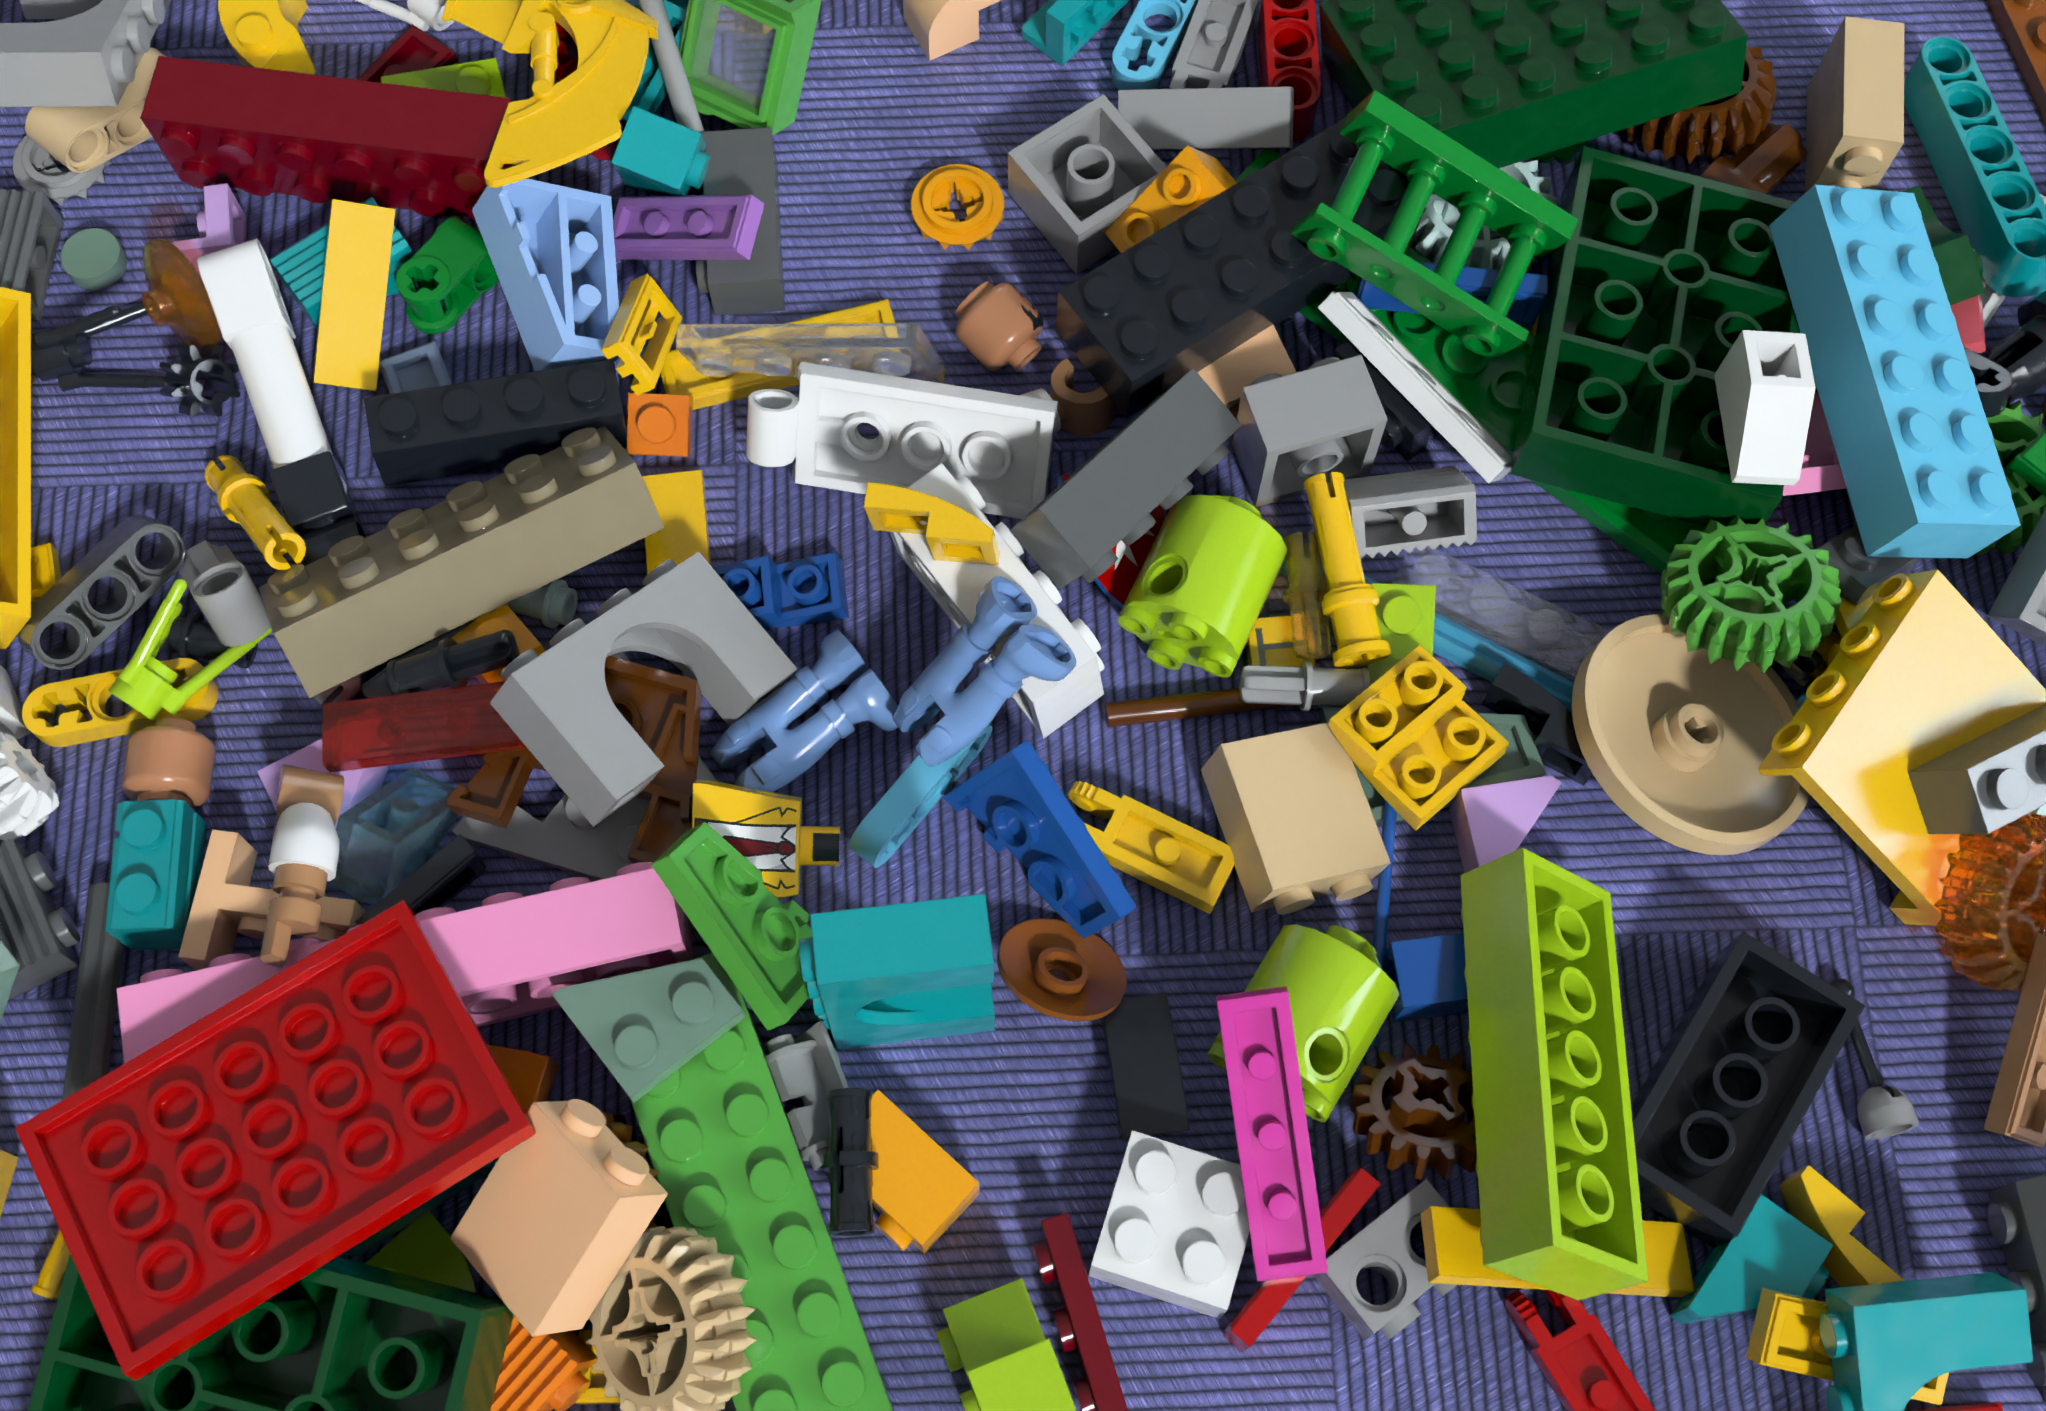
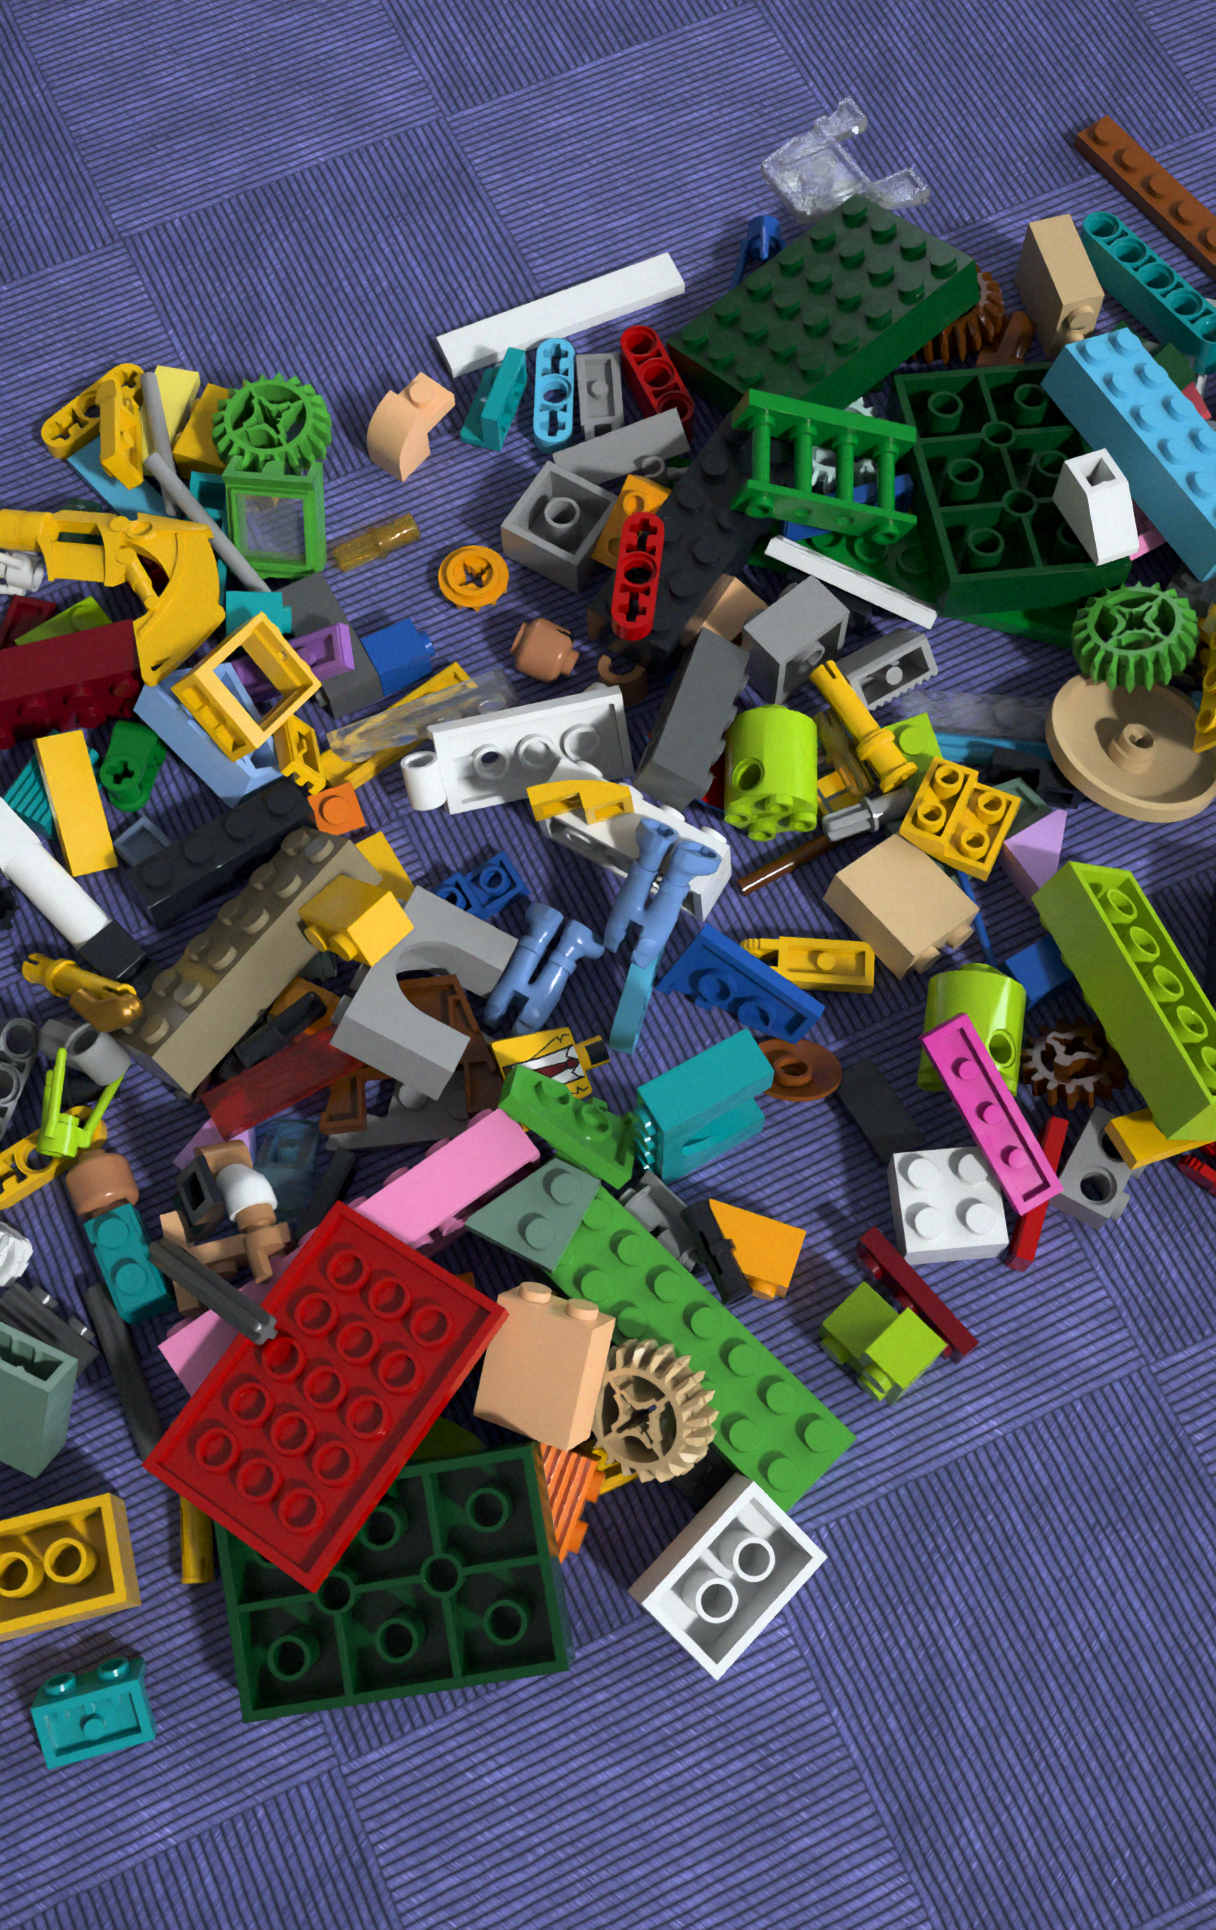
camera: 20 degrees left, 0 degrees up
(208, 950) = (213, 1291): none -> dark grey axle
(252, 828) = (198, 1200): none -> black slope
(256, 560) = (108, 1013): none -> pearl gold arm
(551, 245) = (221, 712): none -> yellow window
(591, 565) = (355, 920): none -> yellow brick
(820, 266) = (399, 655): none -> blue brick
(860, 121) = (376, 543): none -> clear yellow axle
(1134, 298) = (646, 592): none -> red beam
(1236, 158) = (655, 469): none -> light grey hand

